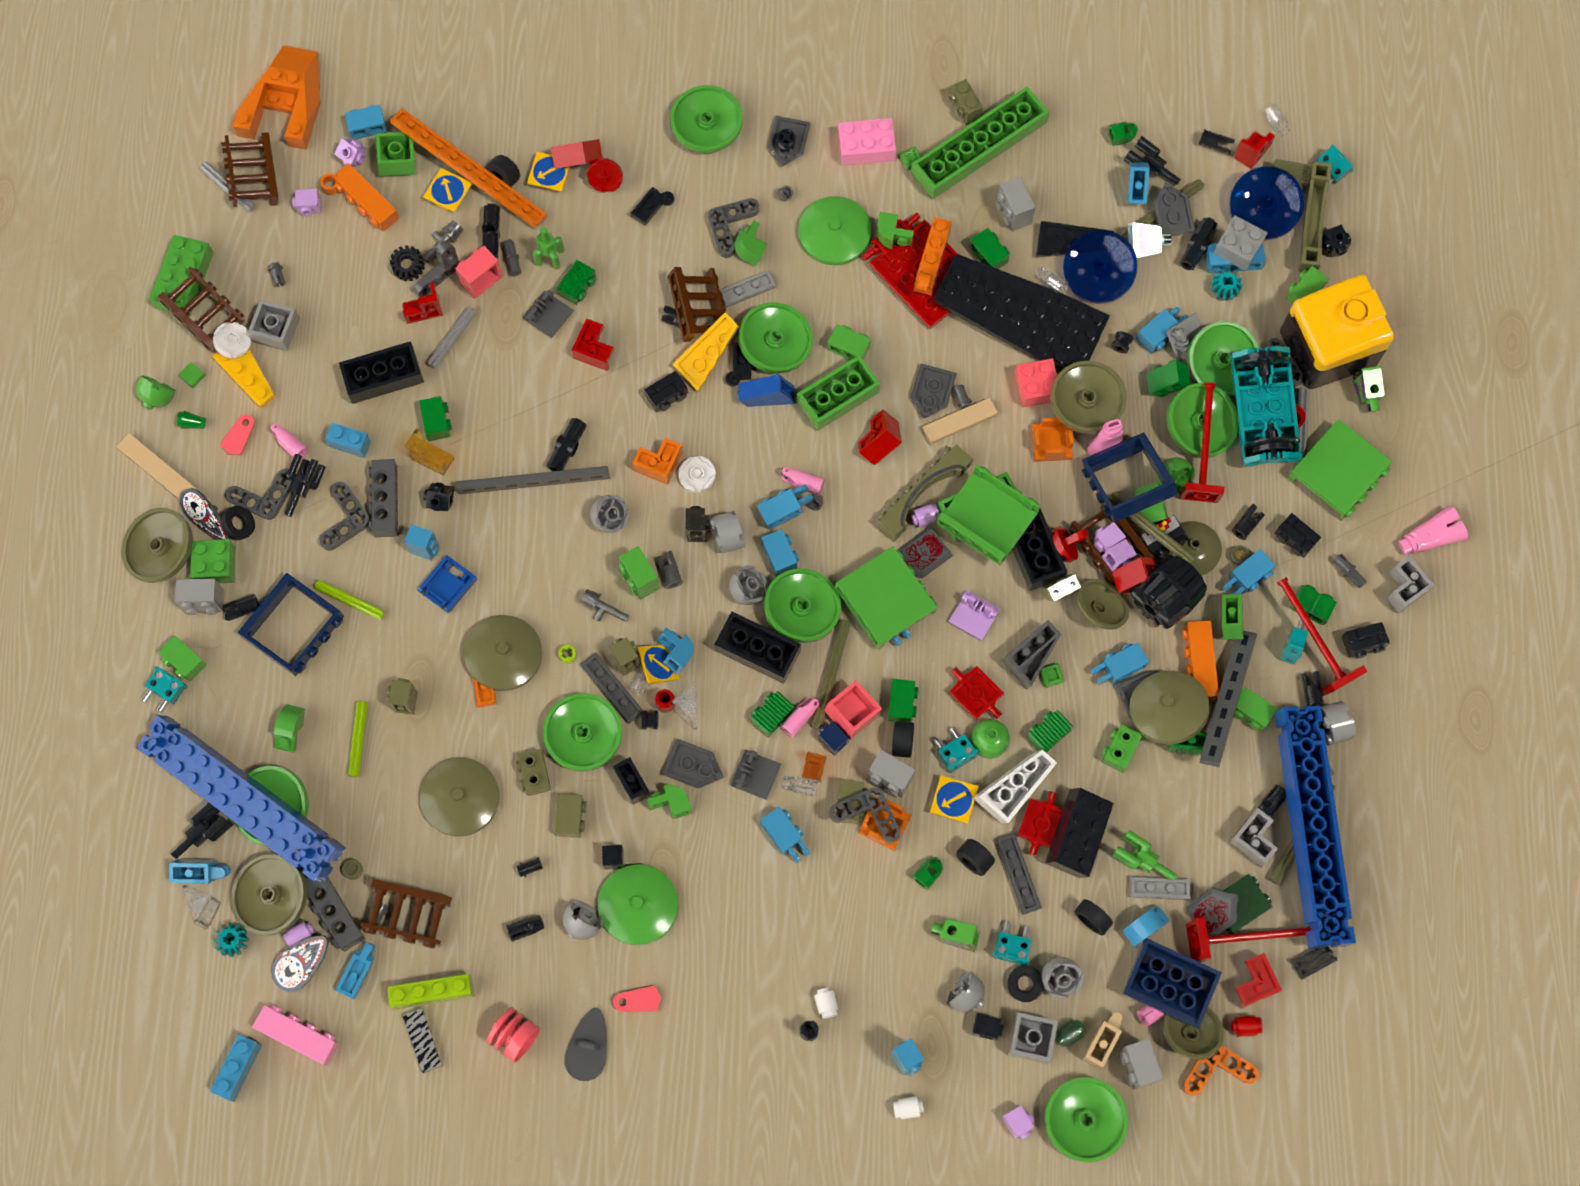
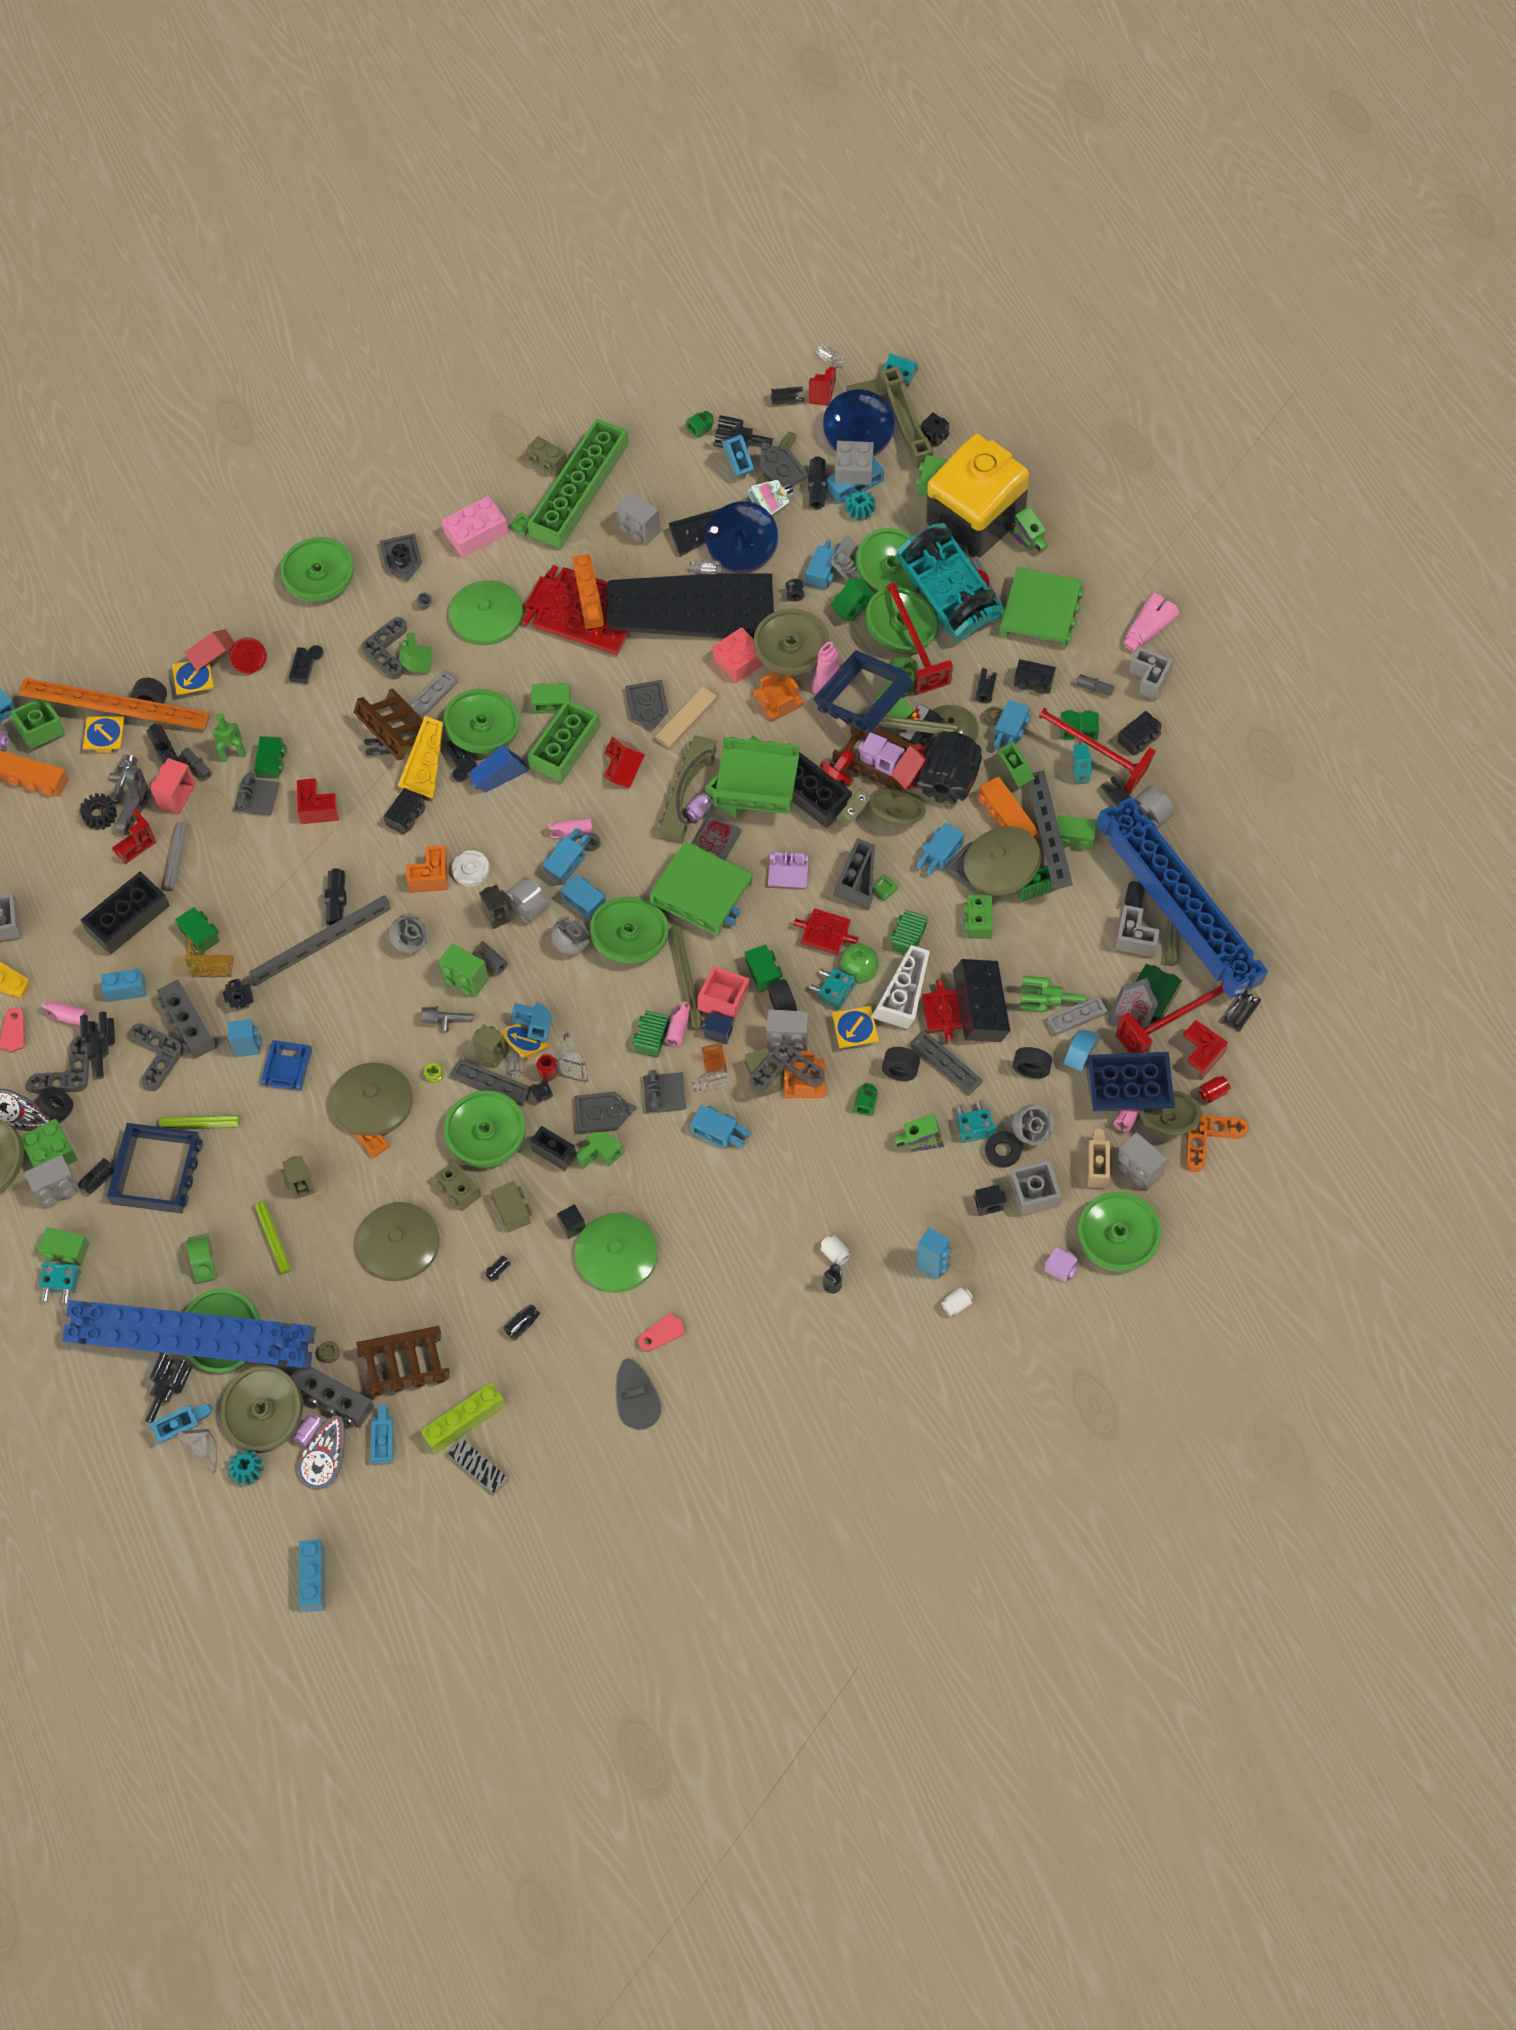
camera: 25 degrees left, 10 degrees down
(295, 1035) = (353, 1519): bright pink brick -> none
(510, 1033) = (557, 1414): coral wheel -> none
(581, 921) = (572, 1289): light grey cylinder -> none
(757, 647) = (607, 983): black brick -> none
(889, 234) = (539, 590): bright green brick -> none
(961, 395) = (676, 696): dark grey pin -> none
(967, 993) = (956, 1179): light grey cylinder -> none
(989, 249) = (633, 565): green brick -> none
(1070, 1033) = (1066, 1169): clear green brick -> none

